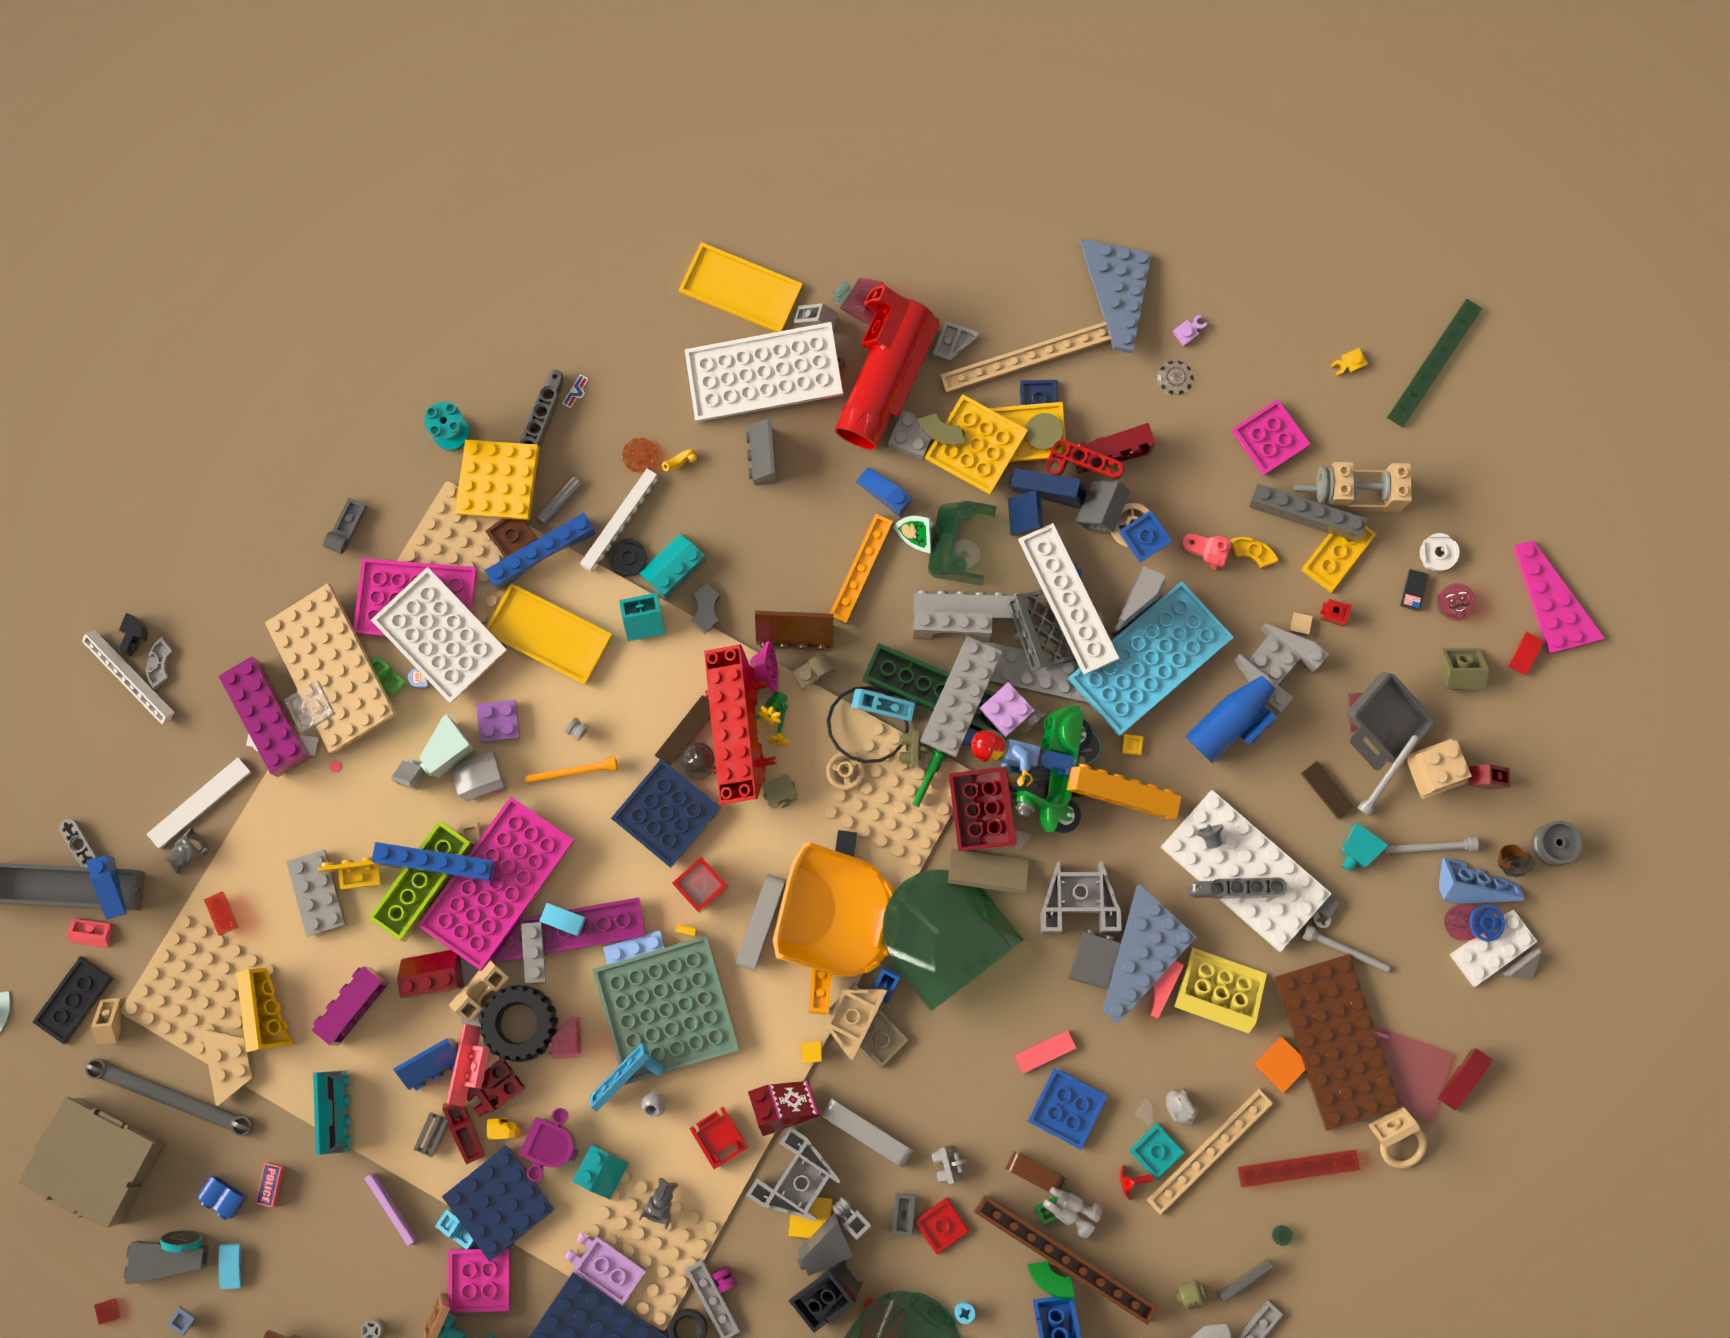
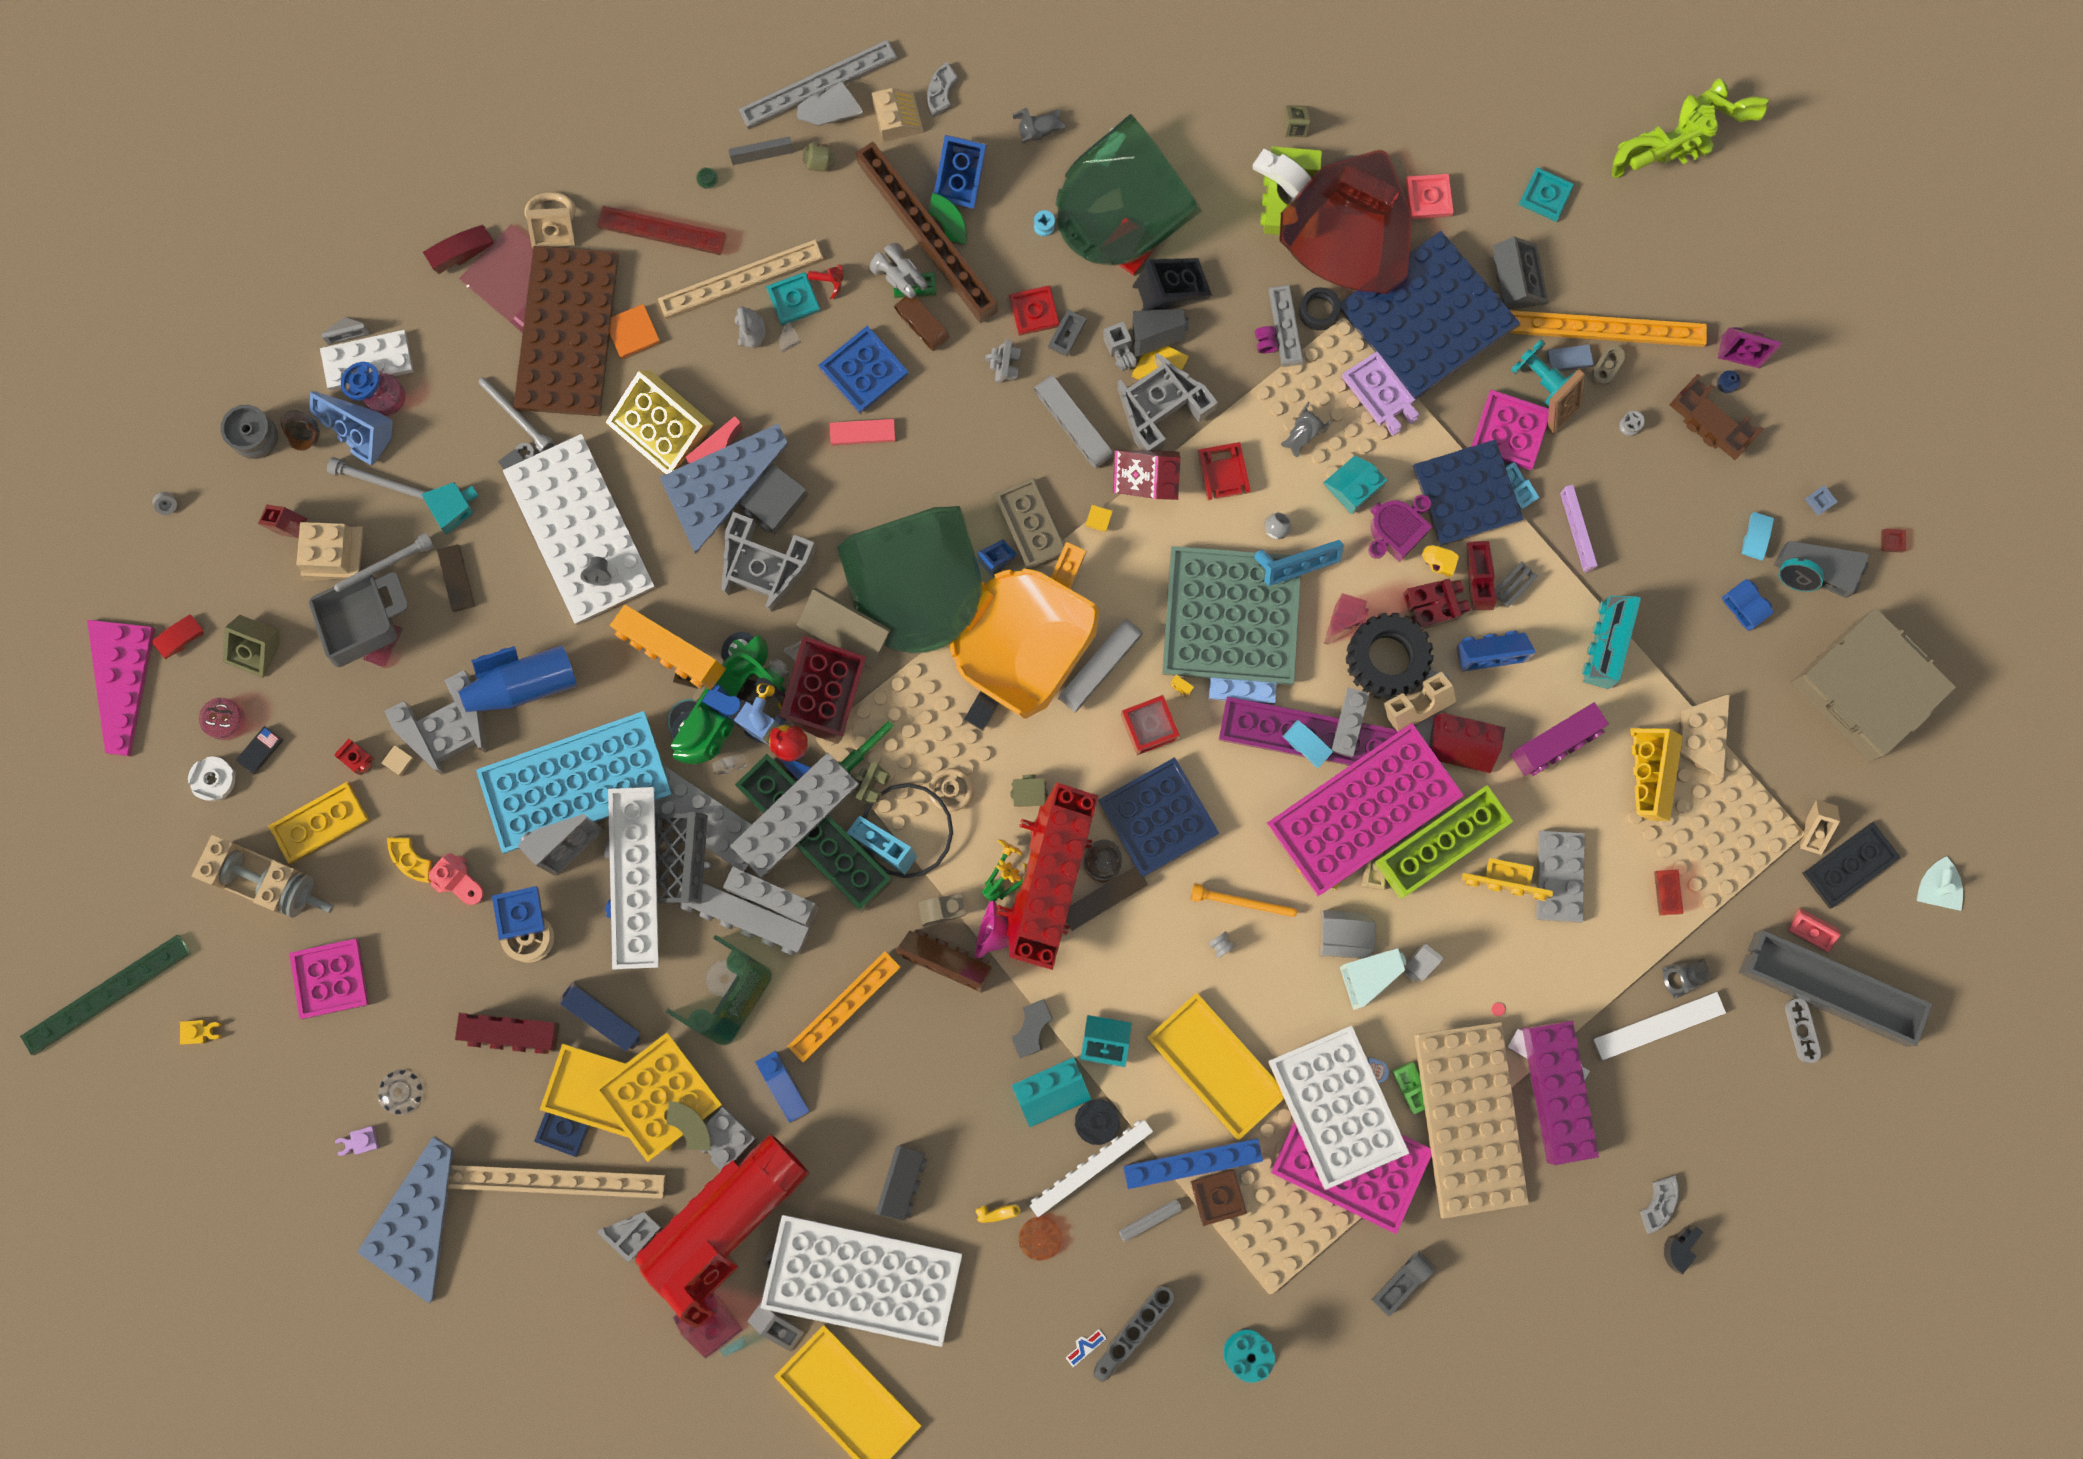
camera: 160 degrees left, 0 degrees up
(107, 885) = (1784, 963): blue slope -> none
(128, 676) = (1700, 1200): white piece -> none
(169, 1097) = (1776, 726): dark grey piece -> none
(270, 1185) = (1694, 599): slope -> none
(309, 707) = (1507, 1079): clear plate -> none
(433, 861) = (1425, 850): blue arch -> none
(468, 1067) = (1454, 630): coral bracket -> none
(497, 479) = (1212, 1268): yellow plate -> none
(498, 721) = (1304, 988): medium lavender plate -> none
(853, 1017) = (1042, 533): tan wing -> none
(915, 532) = (767, 1022): shield -> none
(1007, 709) = (751, 782): lavender plate -> none
(1025, 513) = (637, 996): dark blue tile -> none
(1044, 431) = (574, 1081): olive tile -> none
(1087, 462) = (544, 1022): red beam -> none
(1103, 506) = (548, 969): dark grey brick -> none
(1132, 745) = (635, 701): yellow tile -> none
(1206, 888) = (627, 520): dark grey piece -> none
(1308, 513) = (330, 874): dark grey brick -> none
(1594, 757) = (164, 503): none -> light grey tile

